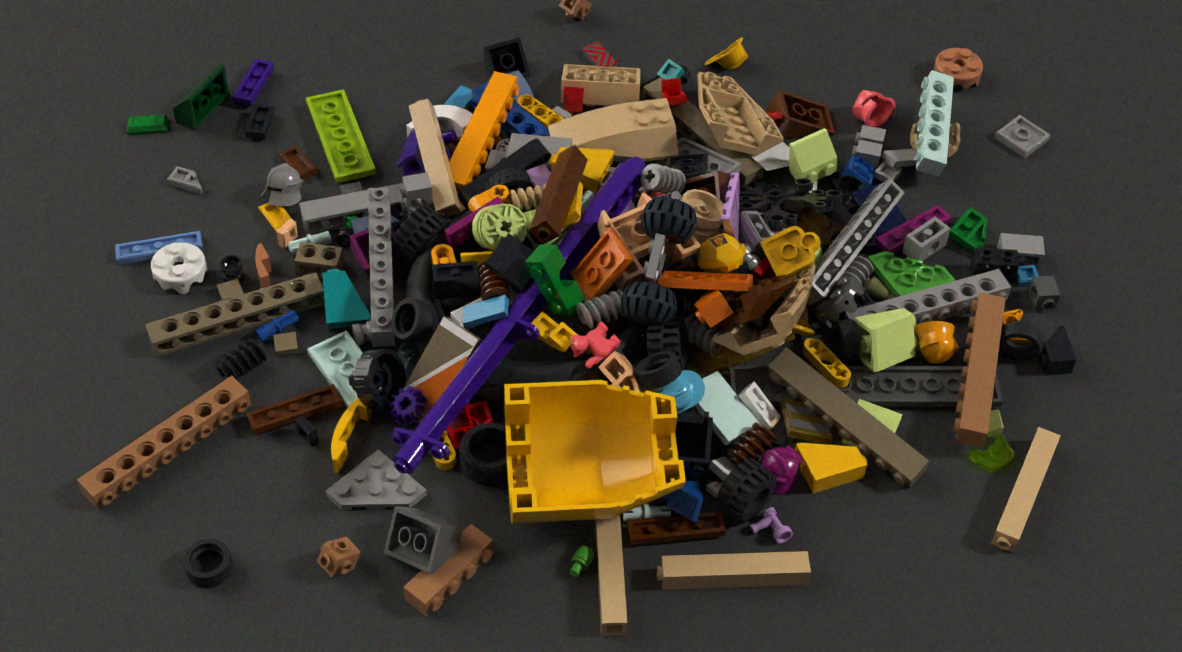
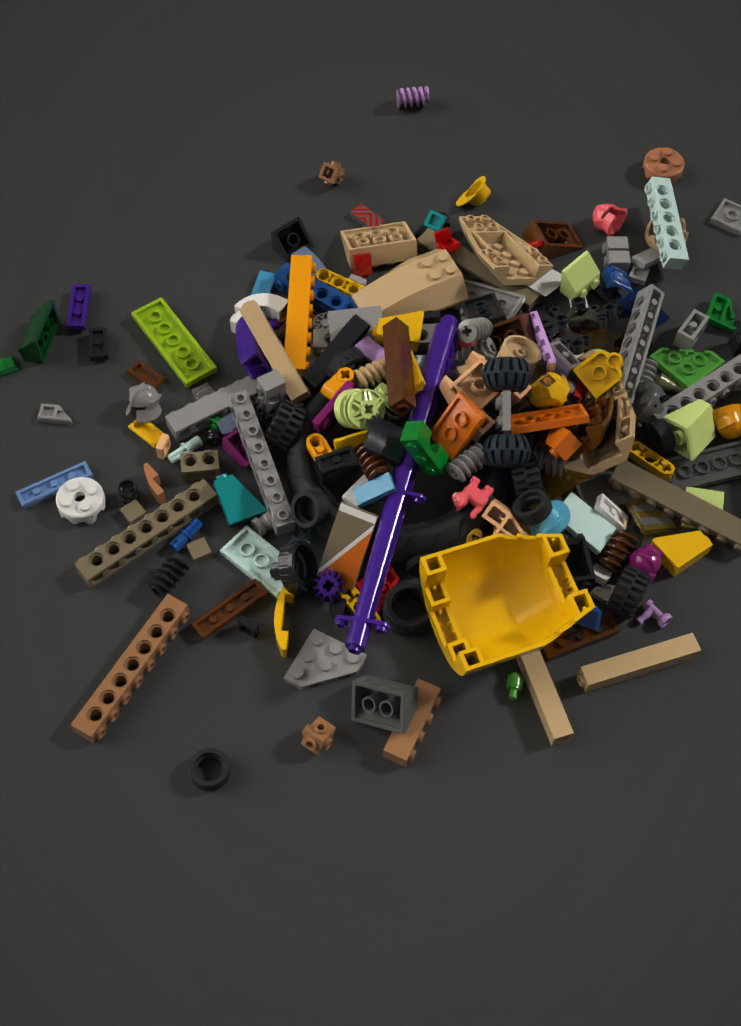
camera: 15 degrees left, 10 degrees up
(553, 334) = (435, 495): yellow slope -> none
(894, 239) = (670, 327): magenta plate -> none

